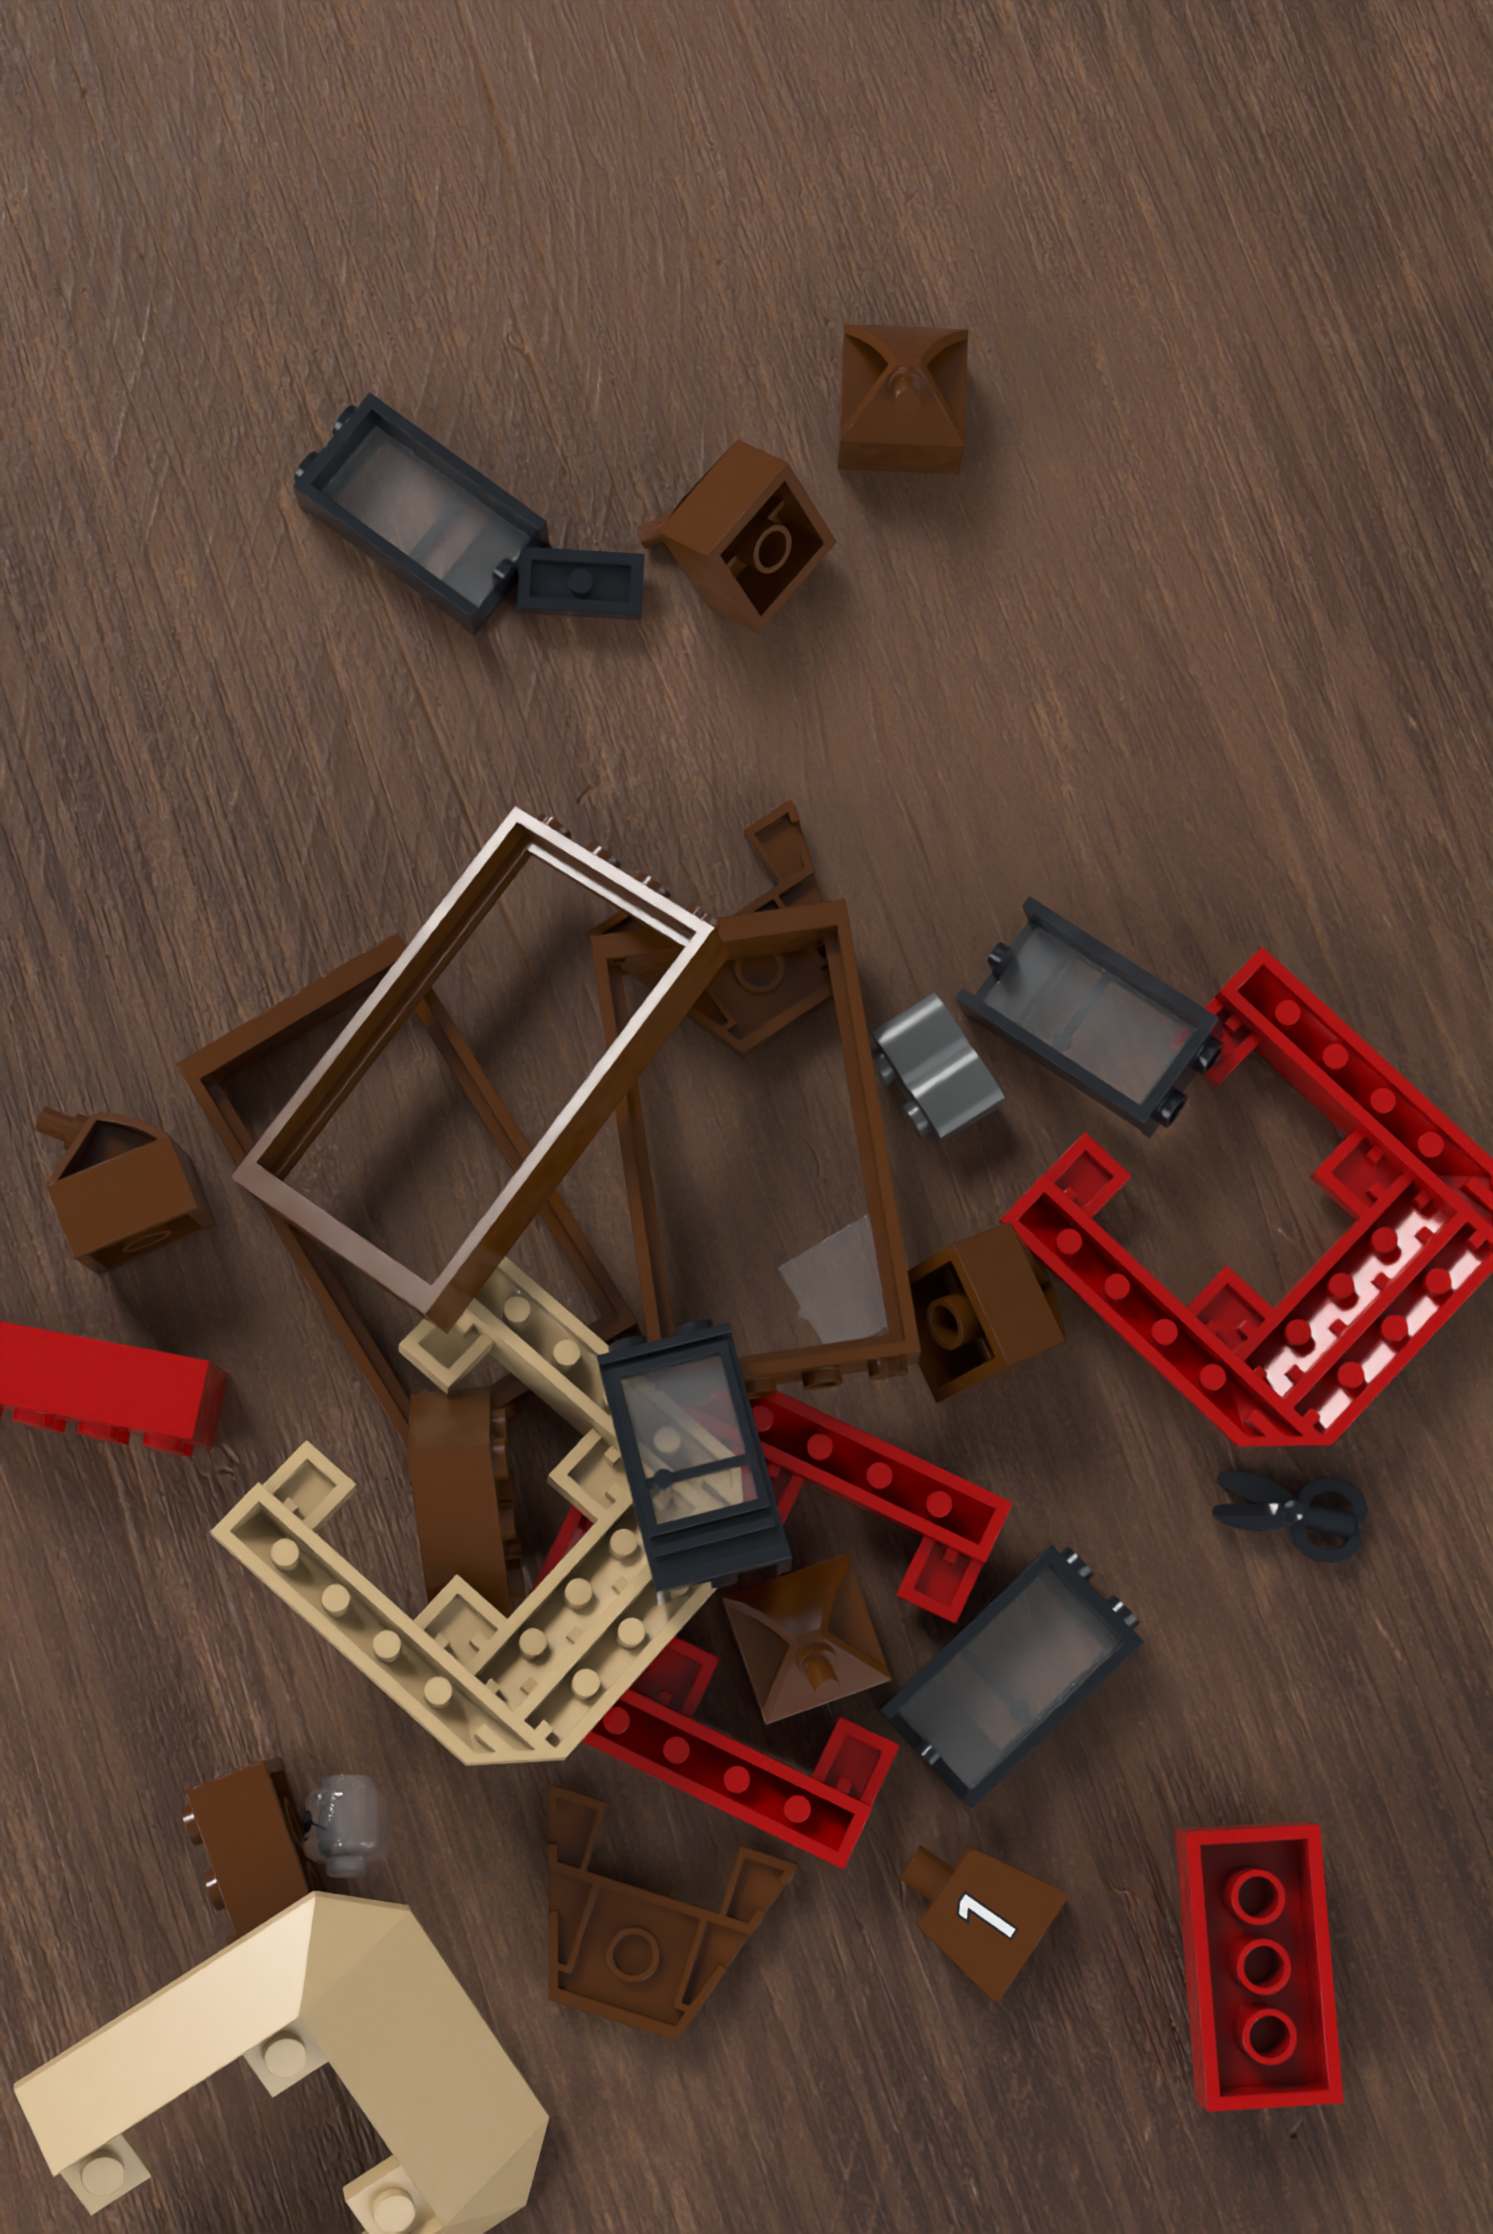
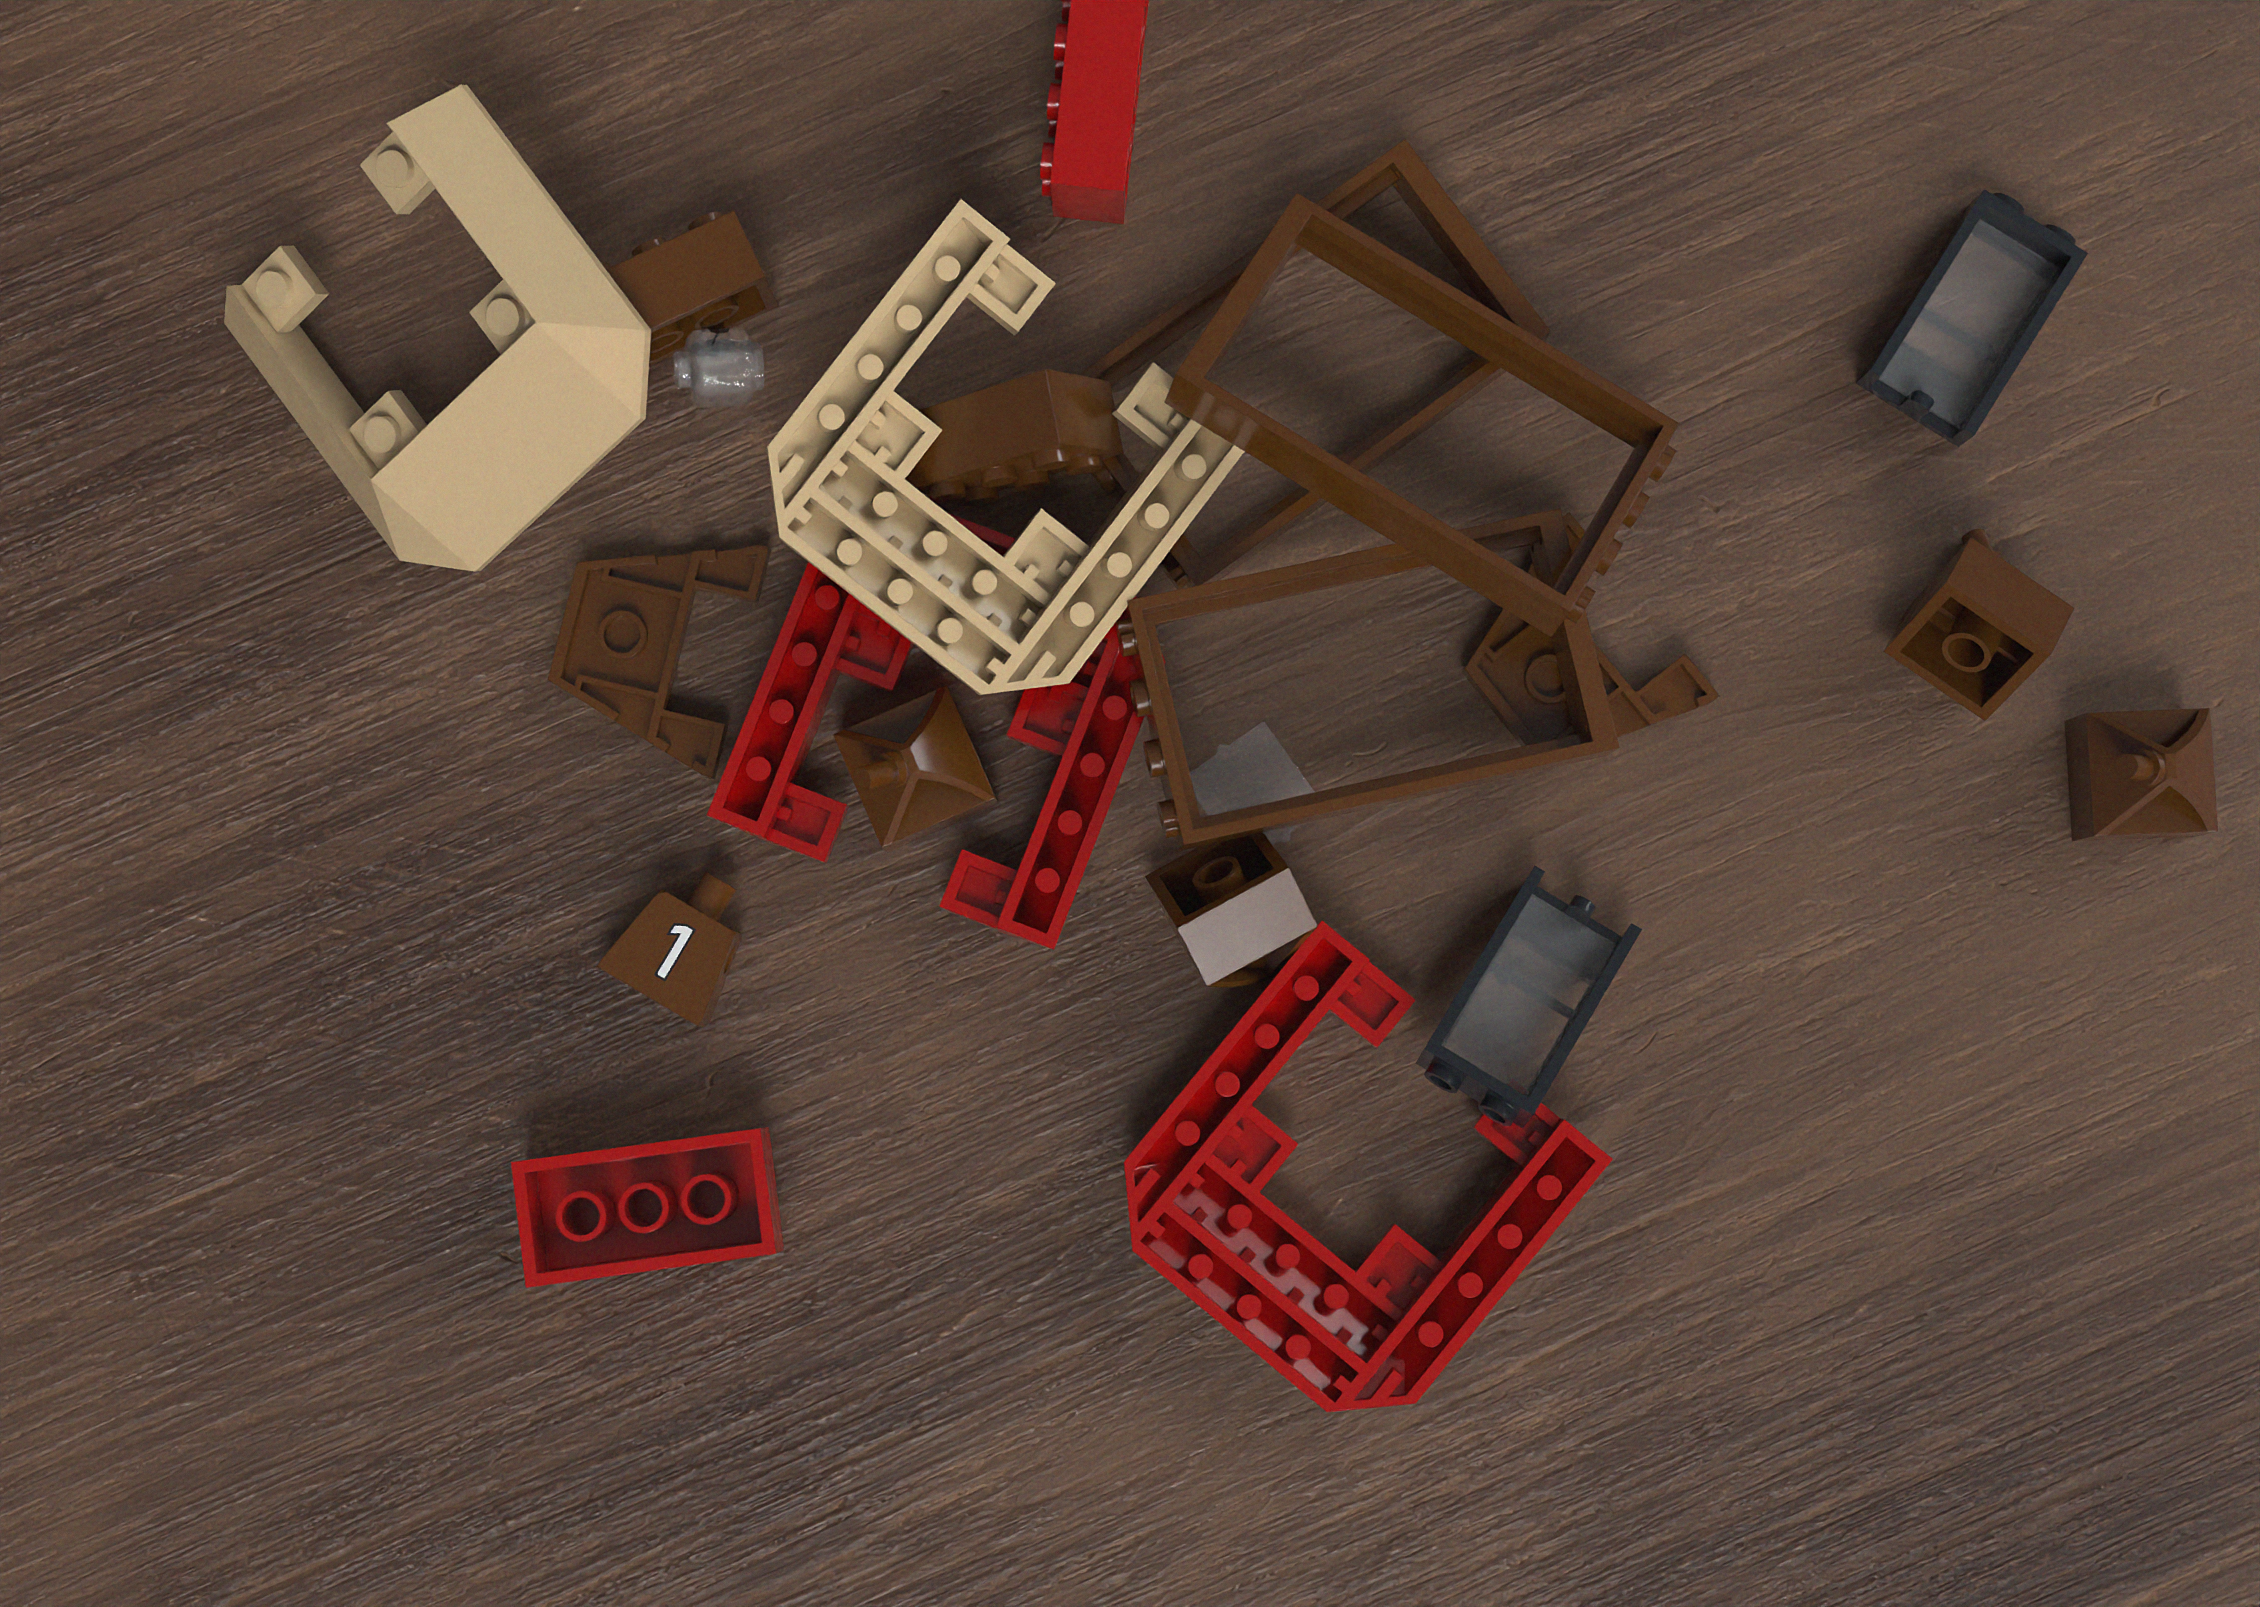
camera: 90 degrees right, 5 degrees up
(121, 1188) = (1282, 102): reddish brown piece -> none
(580, 583) = (1918, 477): black plate -> none
(692, 1458) = (1063, 633): black door -> none
(934, 1070) = (1465, 854): dark grey brick -> none
(1012, 1673) = (899, 965): clear door -> none
(1278, 1509) = (1072, 1211): black piece -> none

